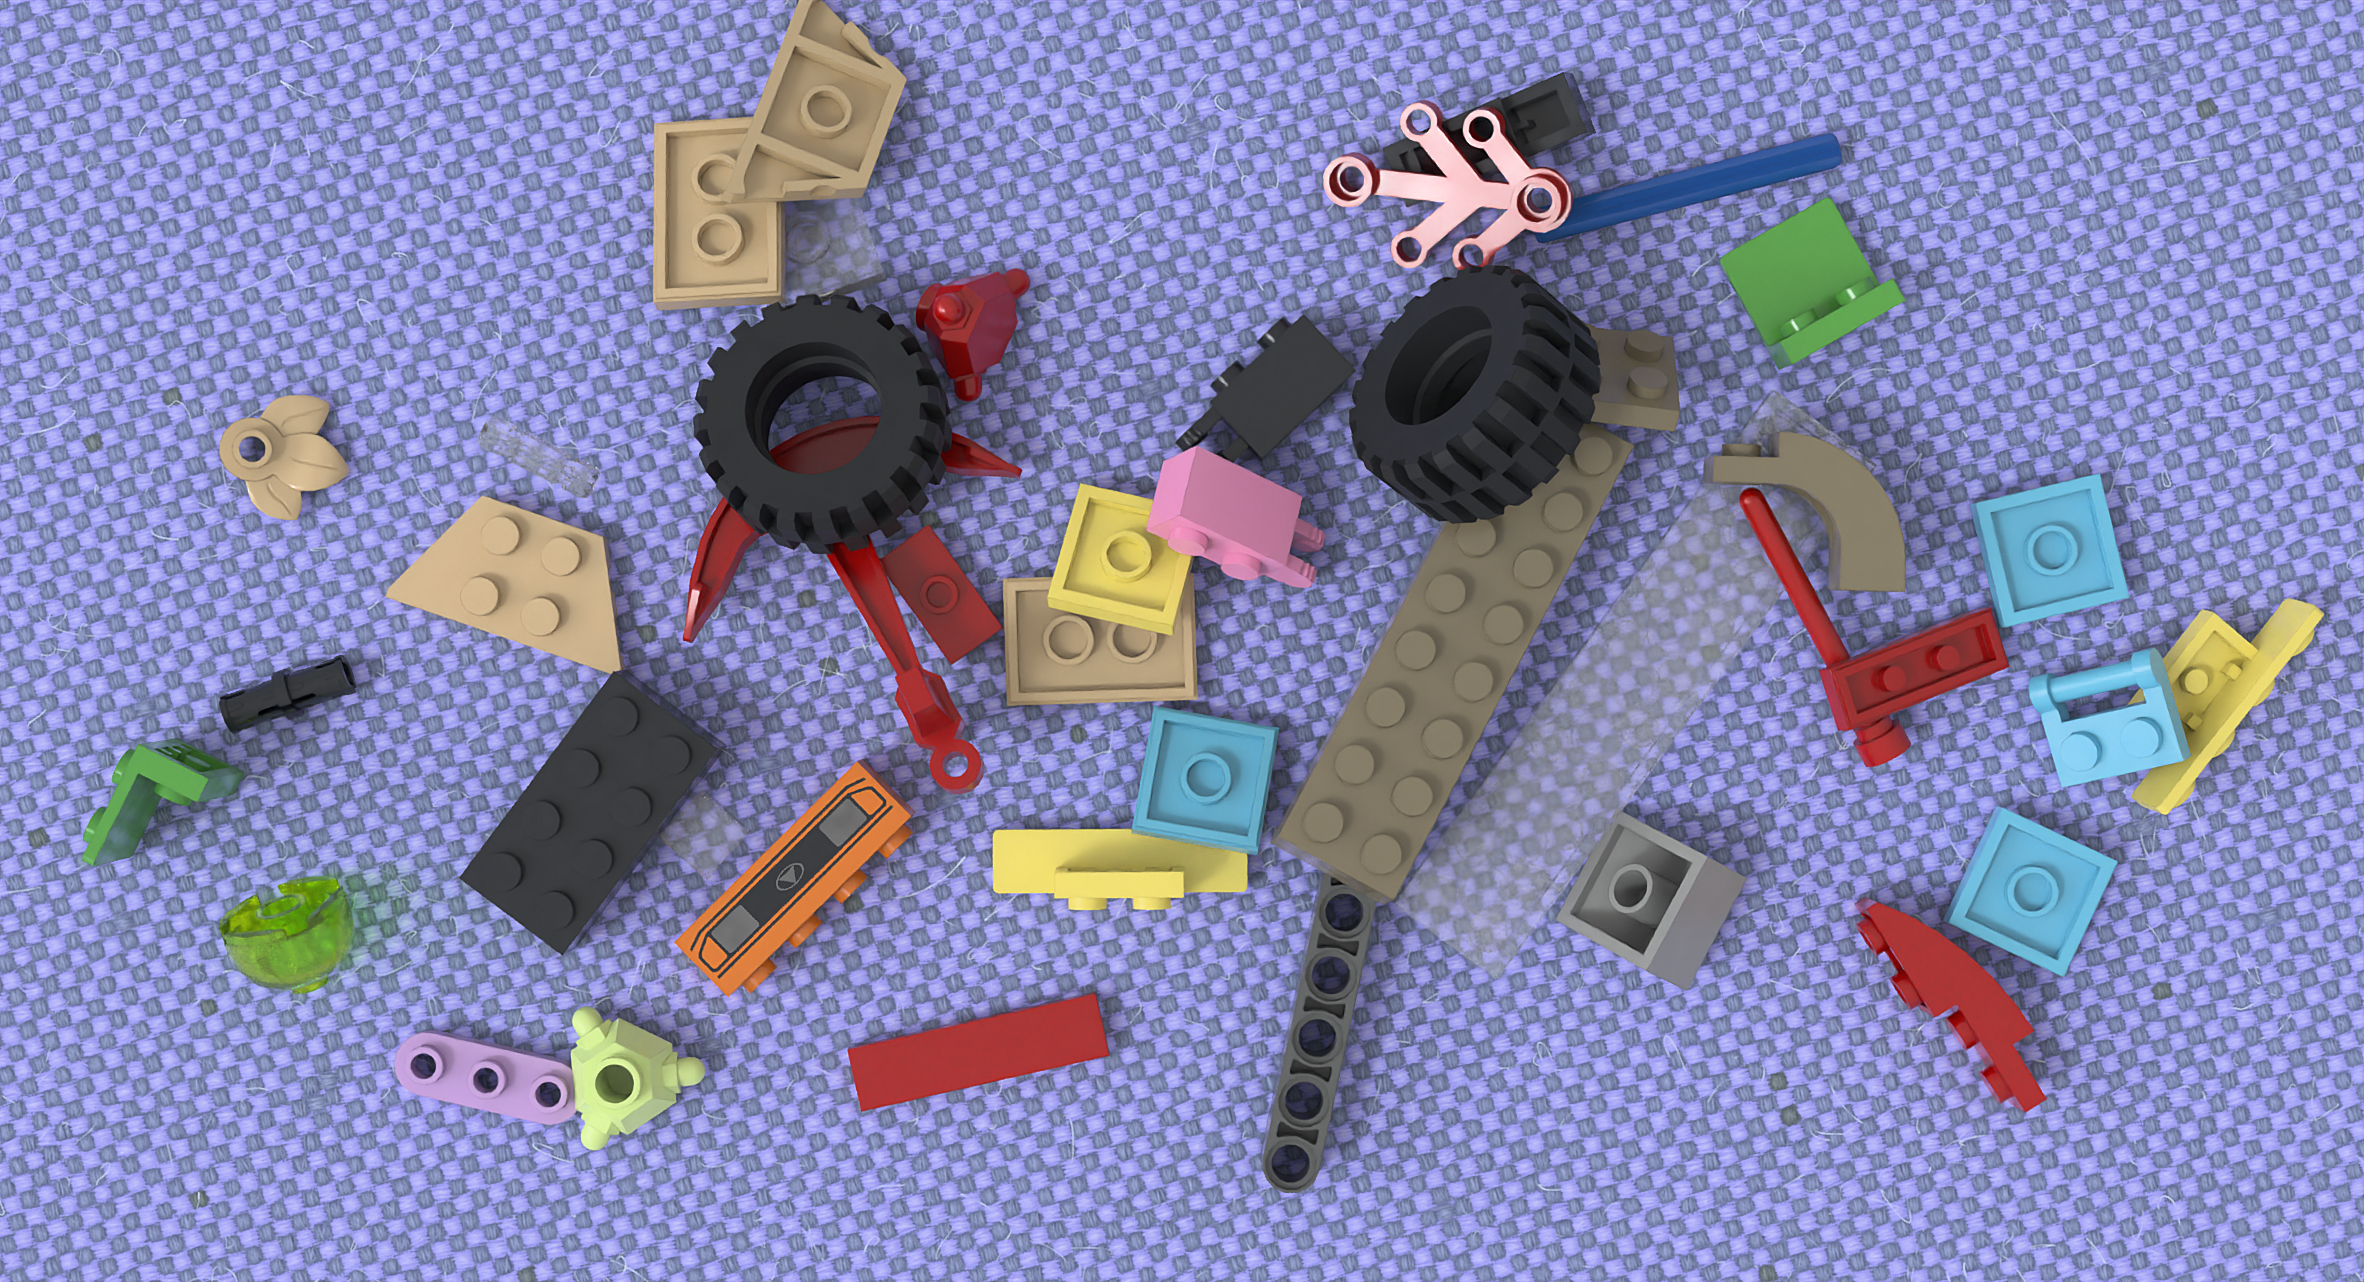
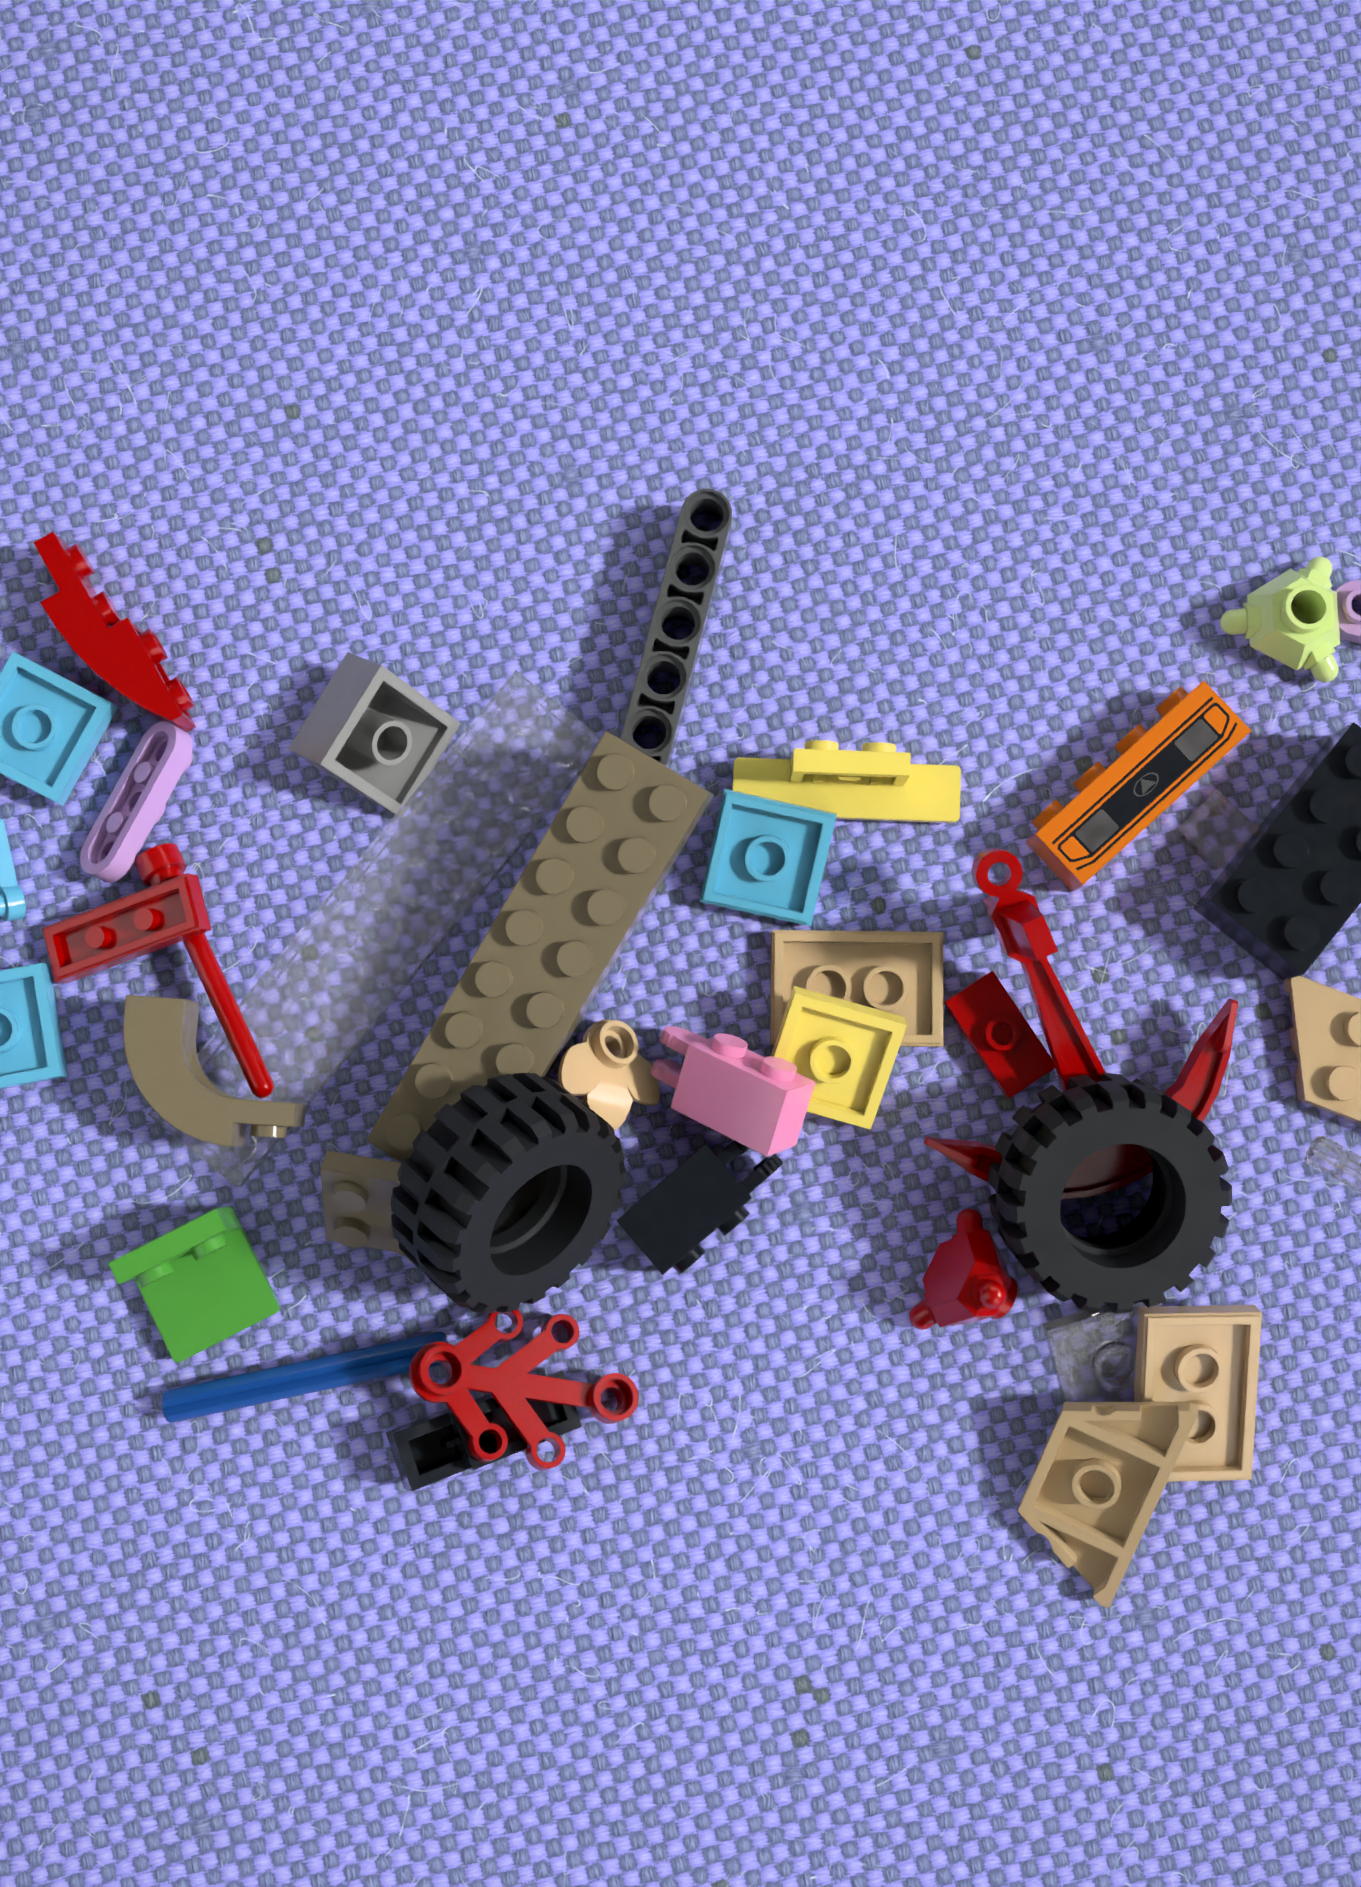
camera: 175 degrees left, 5 degrees down
(978, 1051) = (977, 629): red tile -> none
(1371, 525) = (609, 1077): none -> tan plate
(1913, 812) = (136, 802): none -> lavender plate

